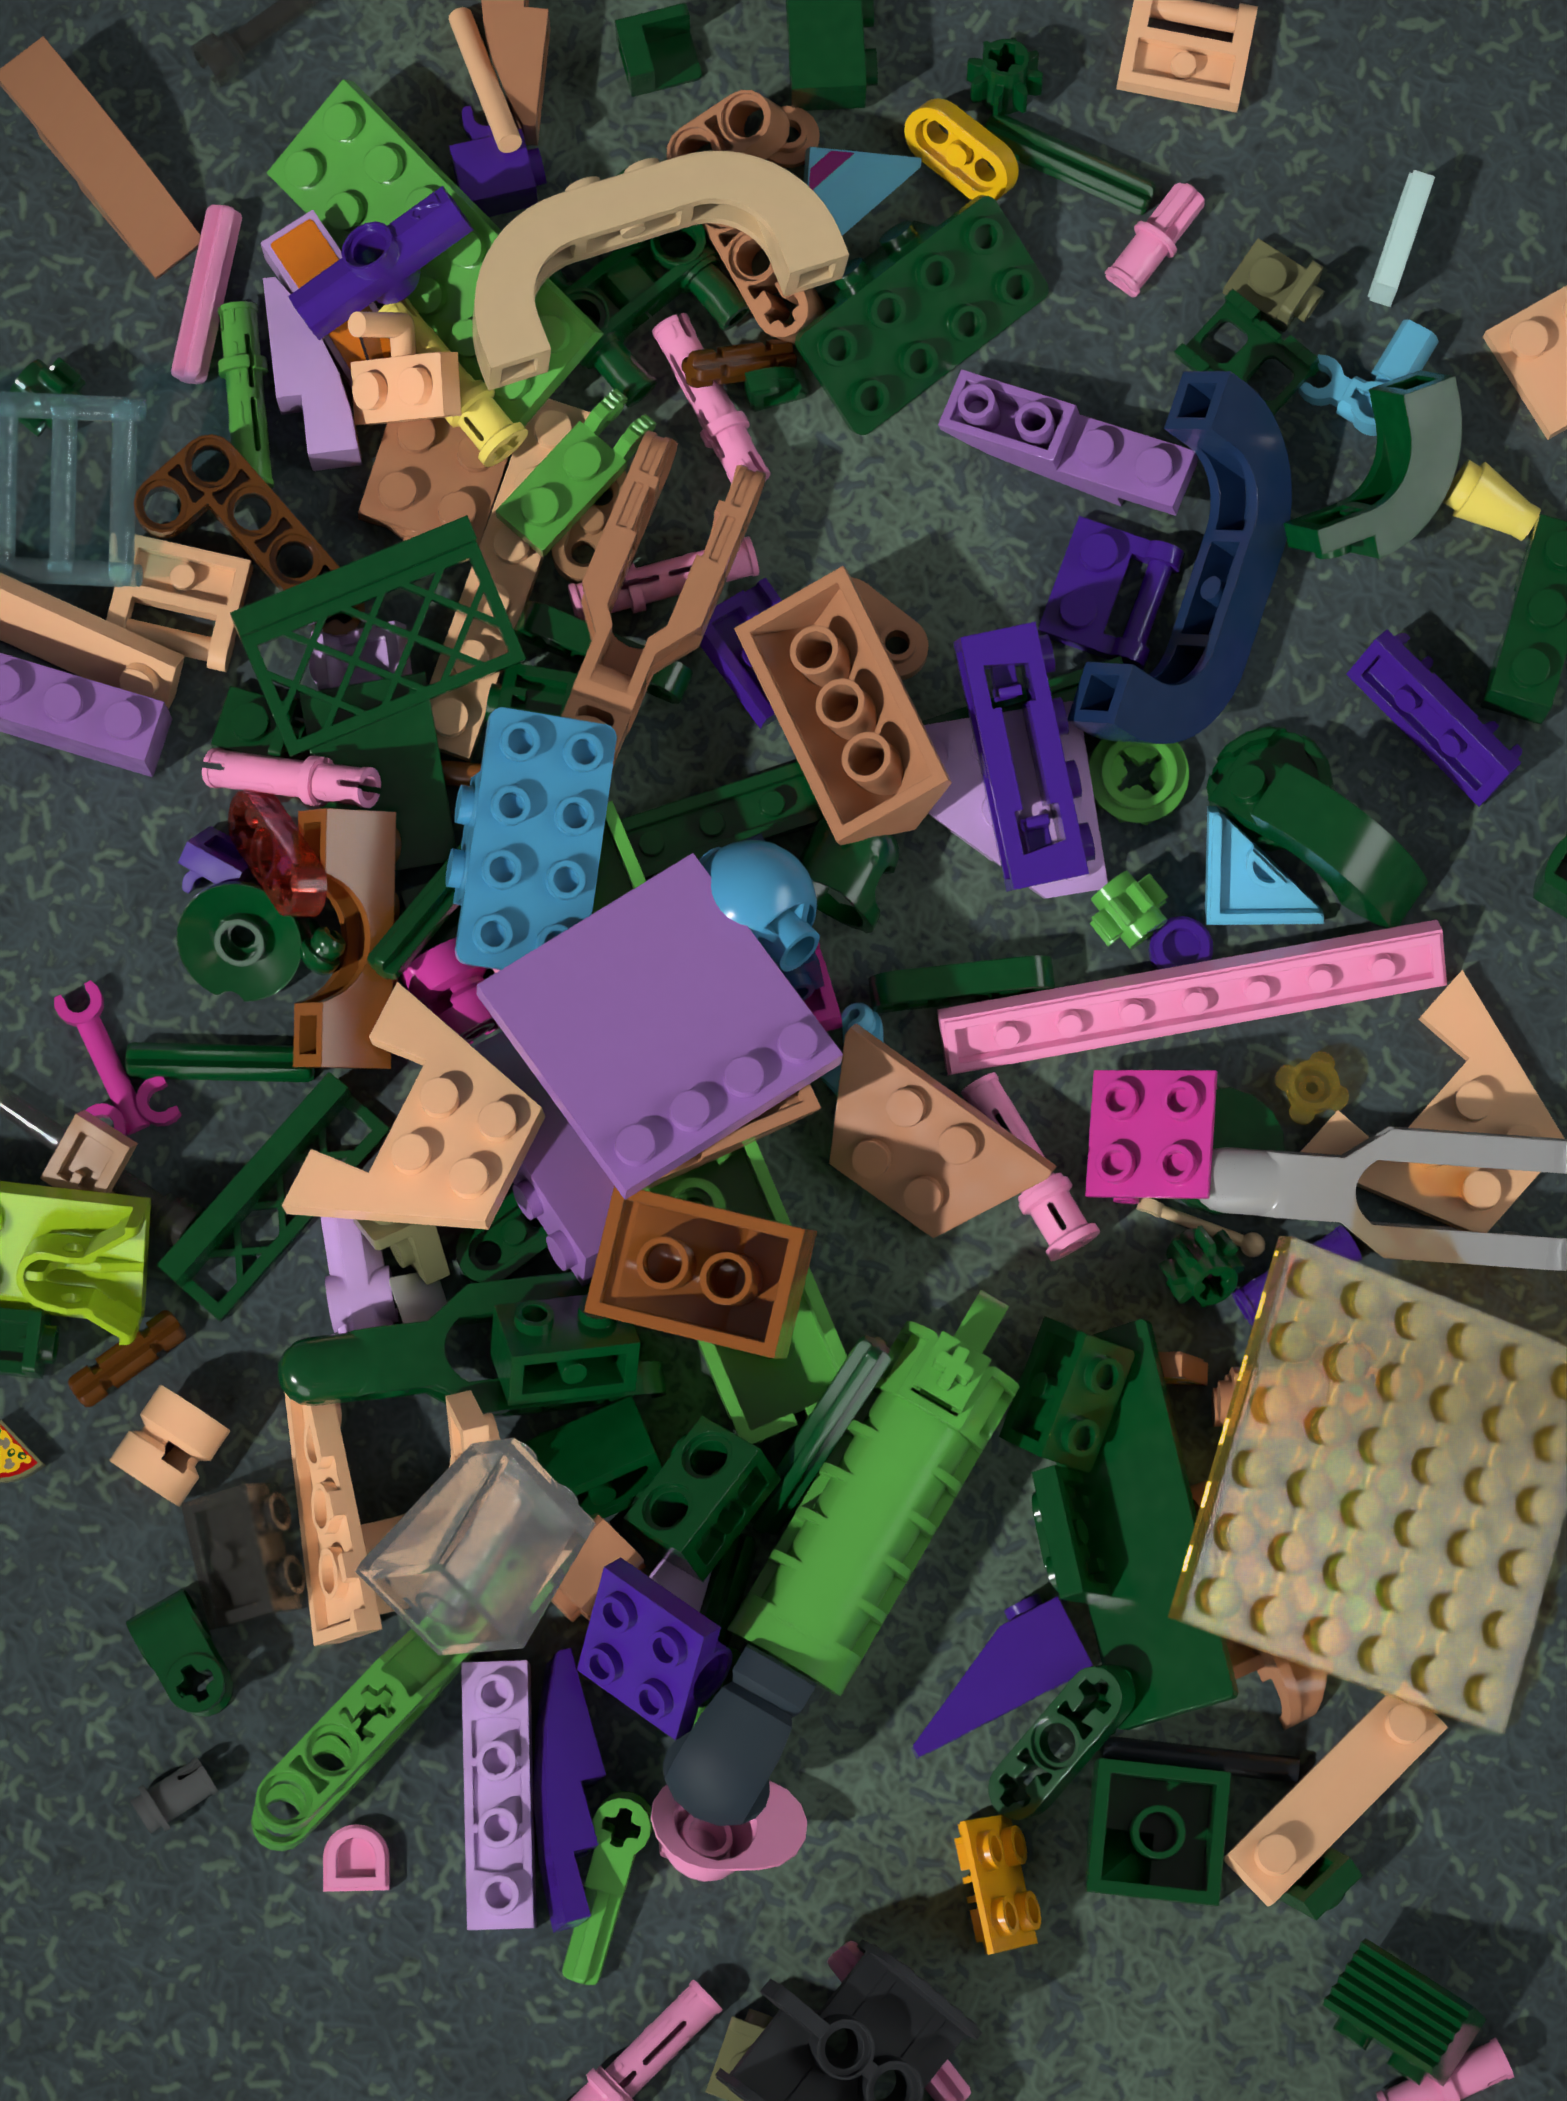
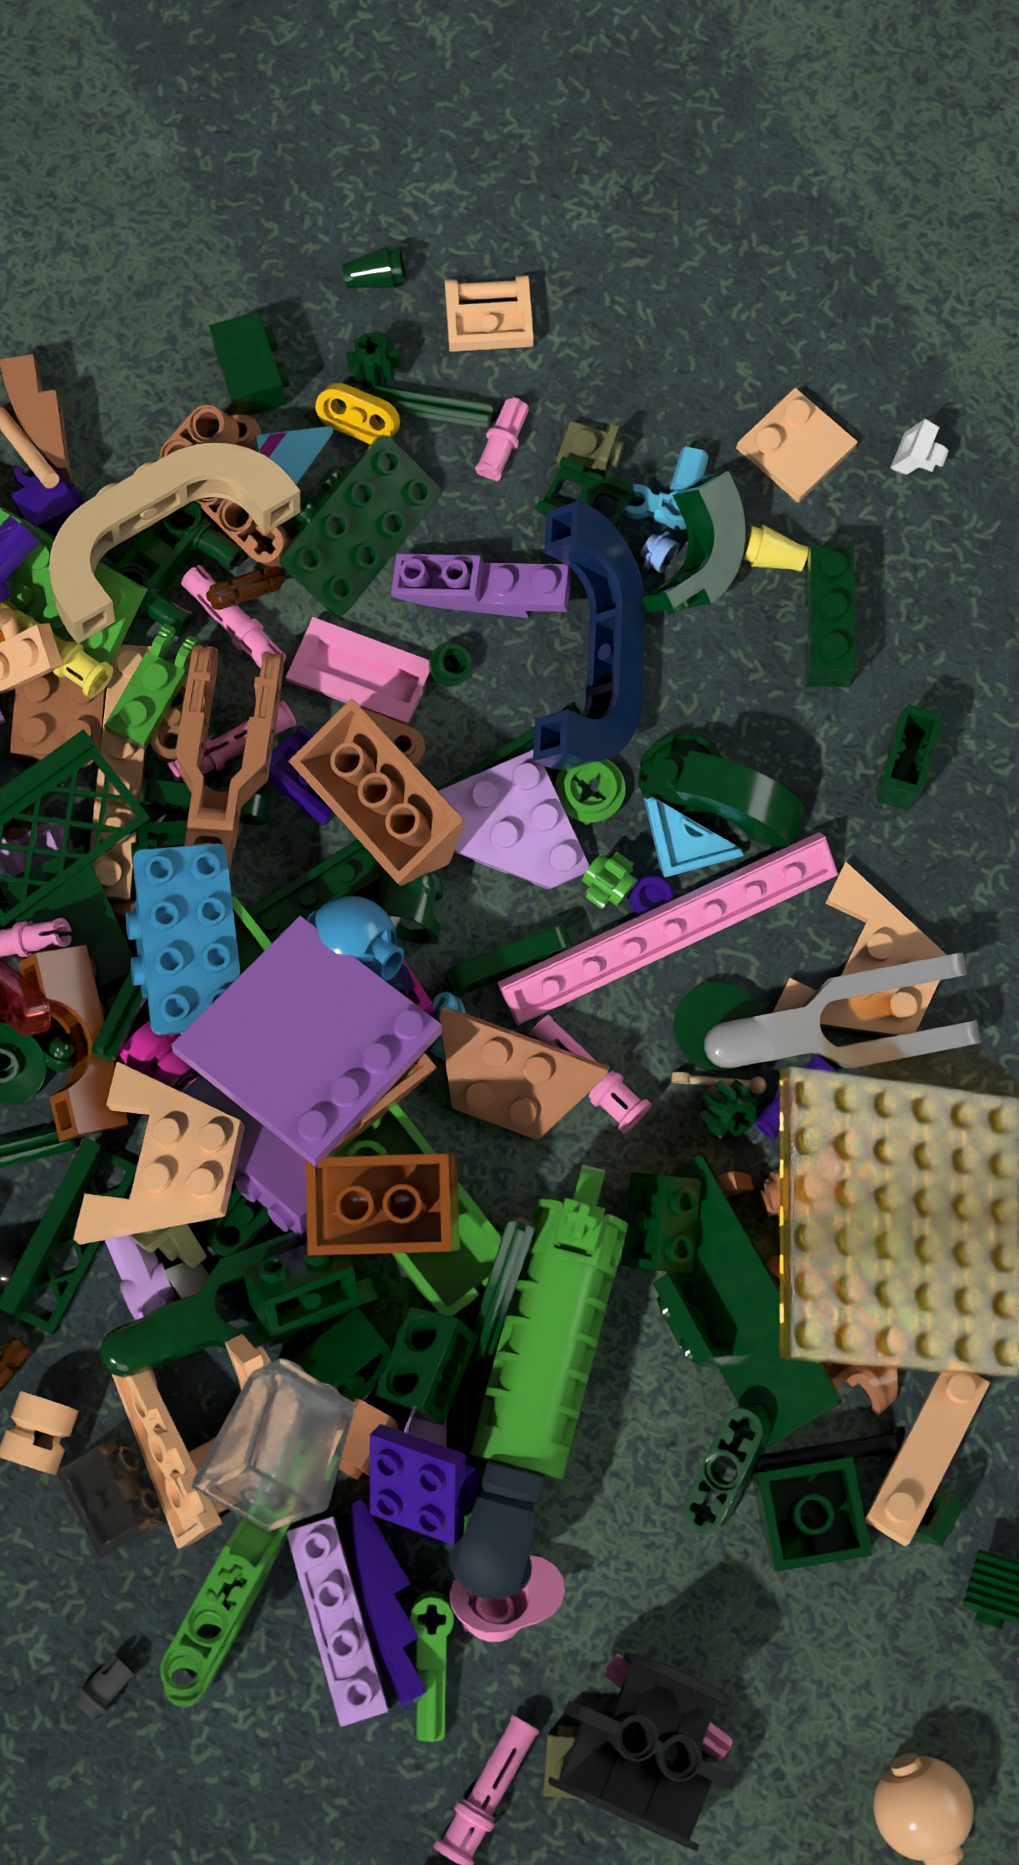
camera: 15 degrees left, 5 degrees down
(177, 1646) = (79, 1576): dark green piece -> none
(356, 1860) = (247, 1697): bright pink tile -> none
(657, 49) = (136, 400): dark green panel -> none
(774, 387) = (273, 598): dark green tile -> none
(866, 522) = (361, 669): none -> bright pink piece
(1005, 1909) = (721, 1601): light orange hinge -> none
(1011, 546) = (458, 655): none -> dark green plate
(1016, 1665) = (678, 1424): dark purple slope -> none
(1045, 723) = (518, 766): dark purple brick -> none
(1090, 585) = (522, 673): dark purple plate -> none
(1151, 1134) = (668, 1027): dark pink hinge -> none
(1320, 1071) = (771, 955): clear yellow plate -> none
(1327, 458) = (657, 549): none -> light blue plate
(1400, 237) = (664, 396): light aqua tile -> none
(1434, 717) = (777, 699): dark purple plate -> none

